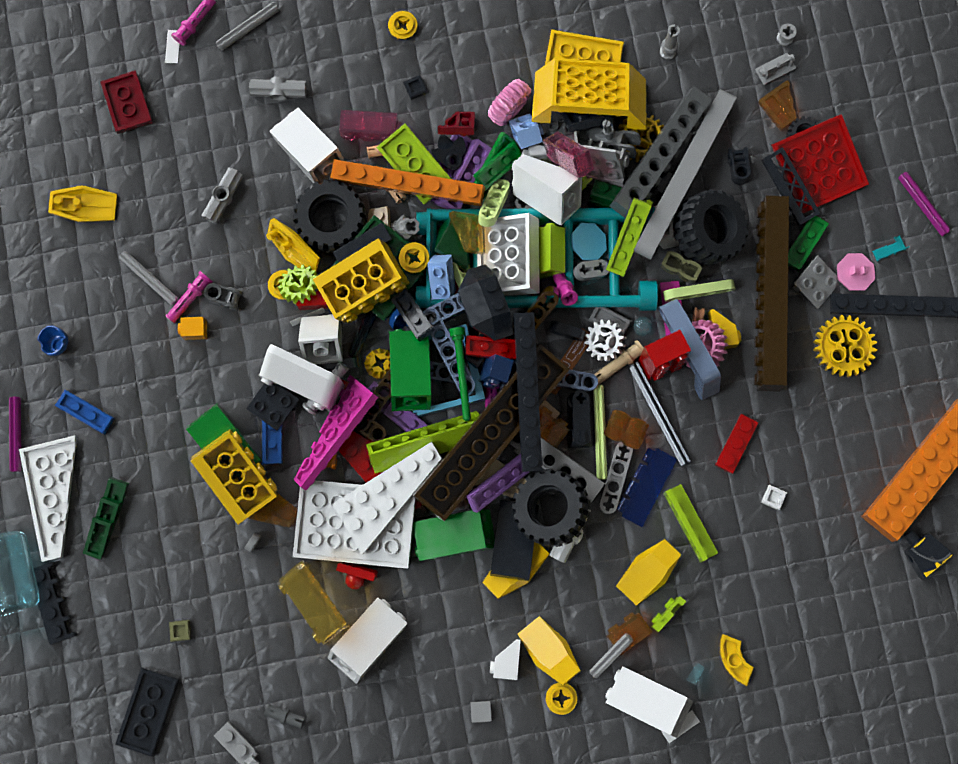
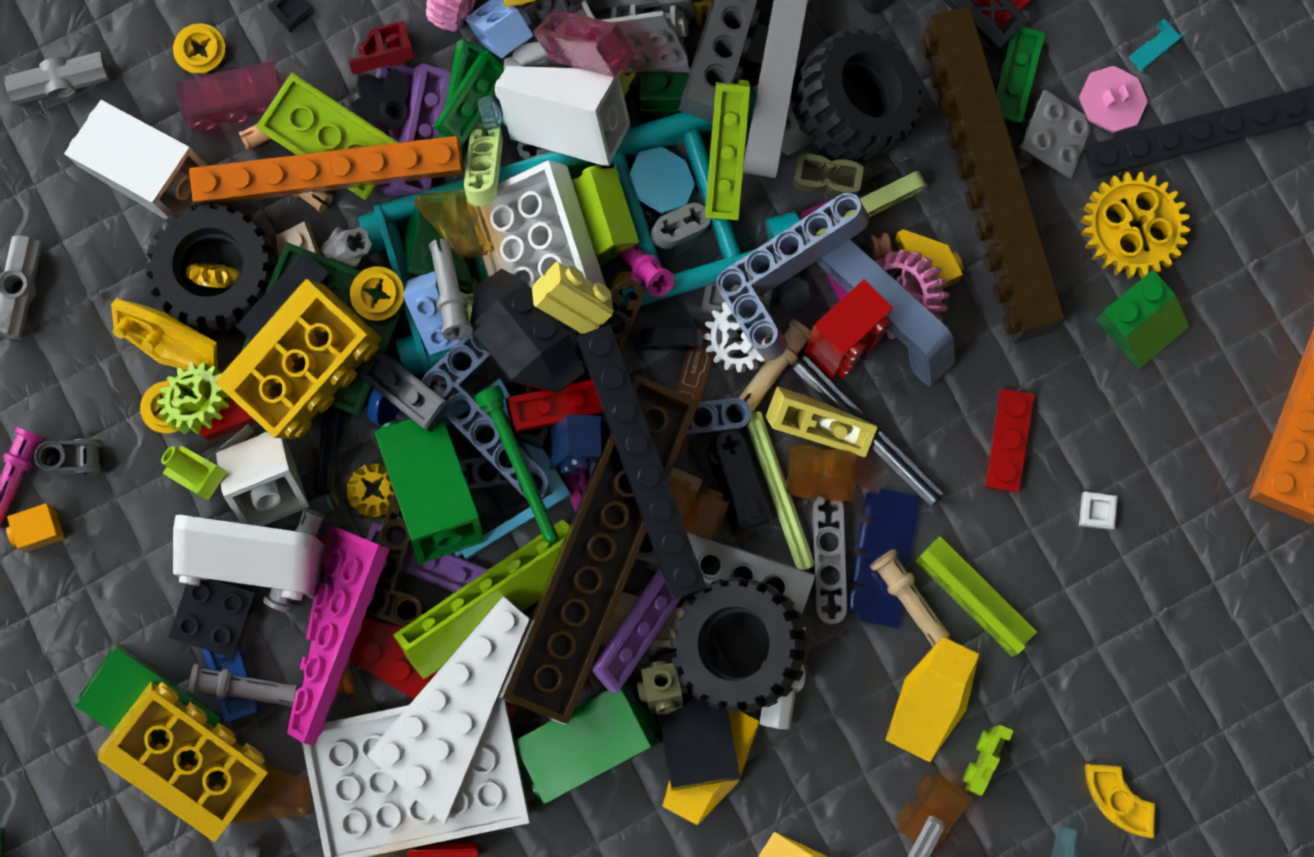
camera: 25 degrees left, 0 degrees up
(268, 443) = (225, 684): none -> light grey pin
(286, 323) = (192, 471): none -> lime piece
(329, 220) = (212, 275): none -> yellow gear
(362, 87) = (201, 35): none -> yellow gear
(452, 273) = (451, 301): none -> light grey pin
(501, 518) = (665, 698): none -> olive brick
(505, 177) = (489, 113): none -> clear light blue tile
(518, 292) = (572, 298): none -> light yellow brick
(634, 401) = (819, 422): none -> light yellow slope
(640, 309) = (785, 266): none -> sand blue beam
(651, 504) = (902, 585): none -> tan pin
(833, 399) = (1144, 319): none -> green slope

